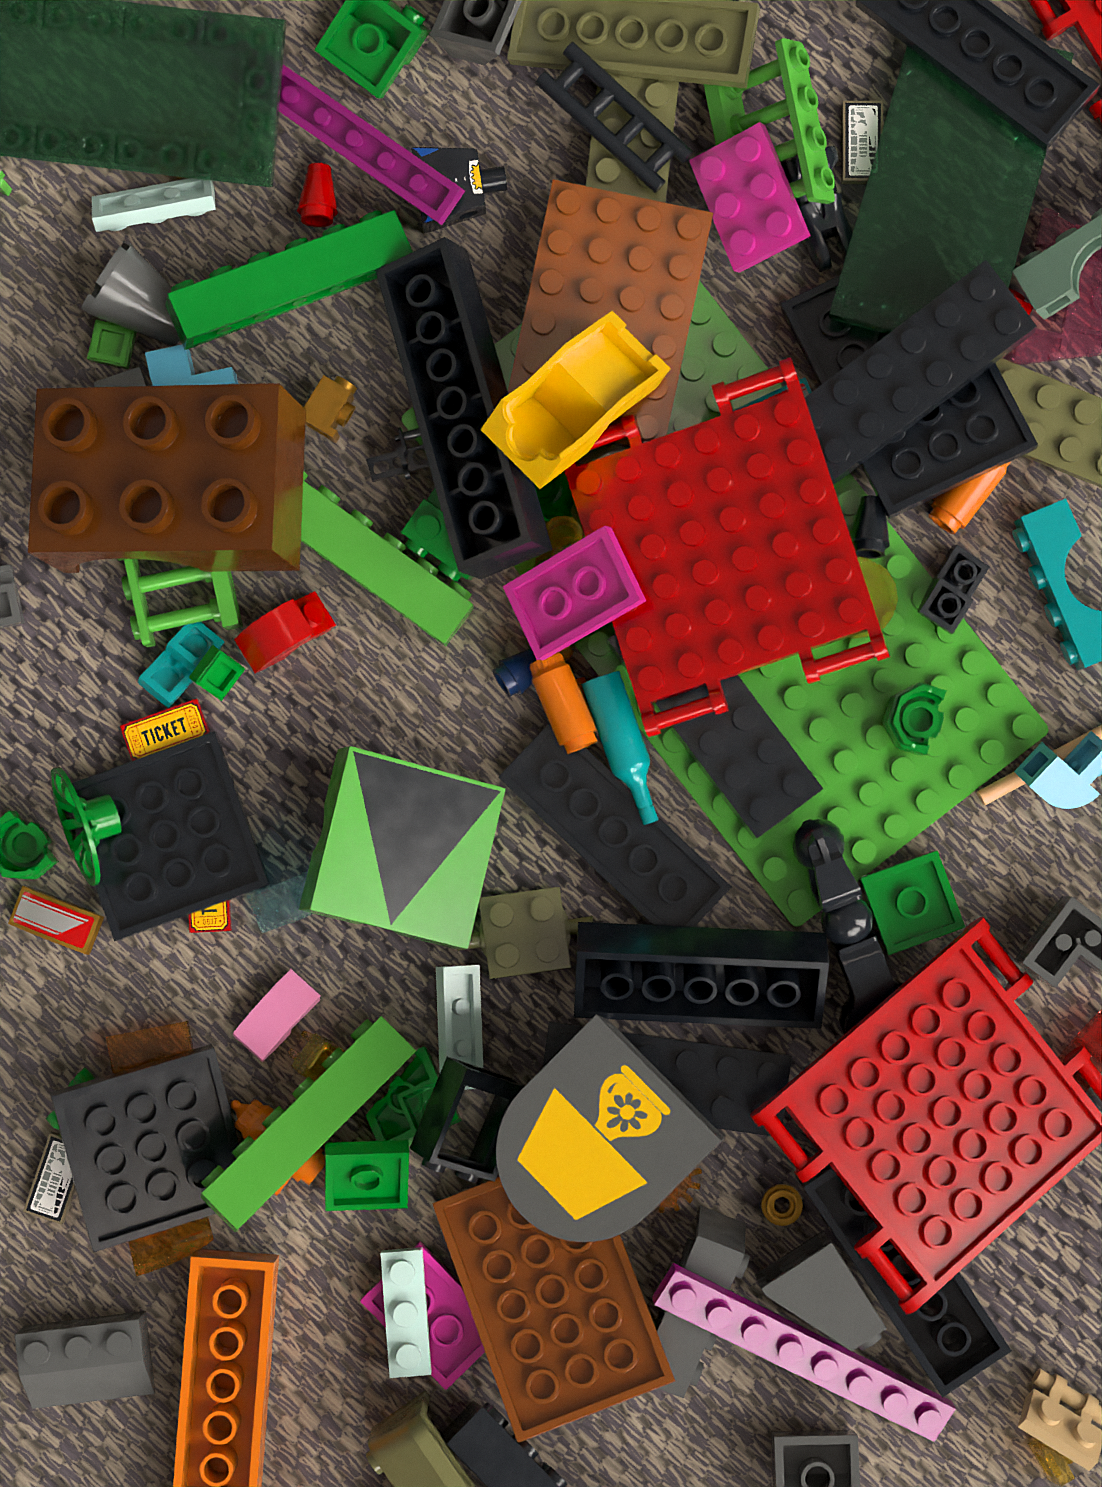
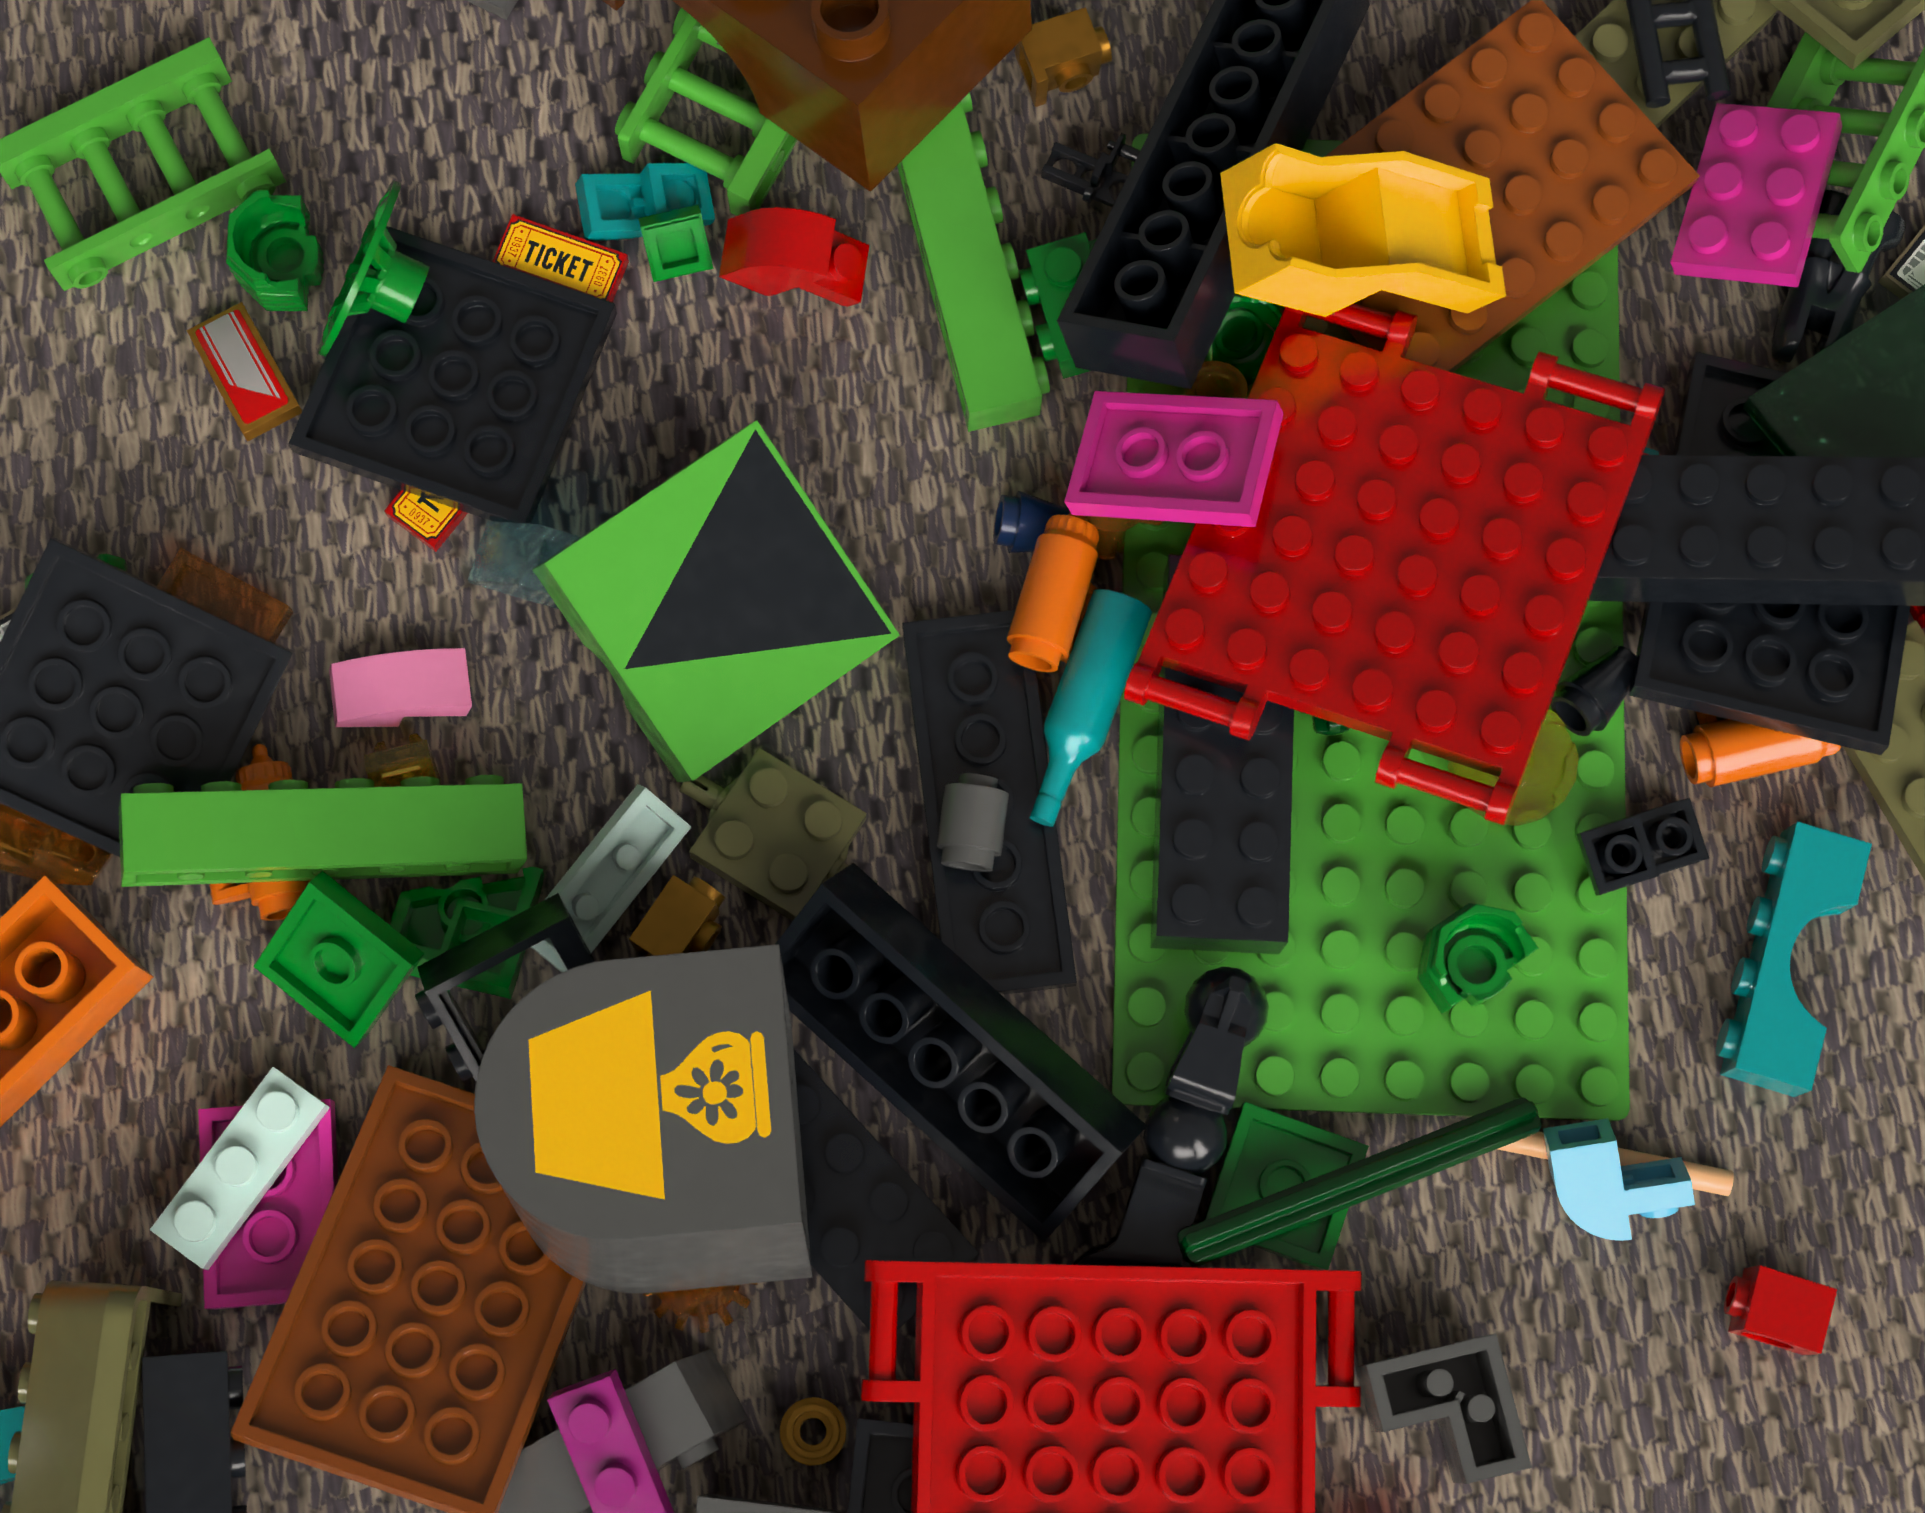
camera: 35 degrees right, 10 degrees down
(516, 1018) = (680, 919): none -> pearl gold brick
(619, 853) = (972, 822): none -> dark grey brick
(948, 874) = (1358, 1182): none -> dark green axle

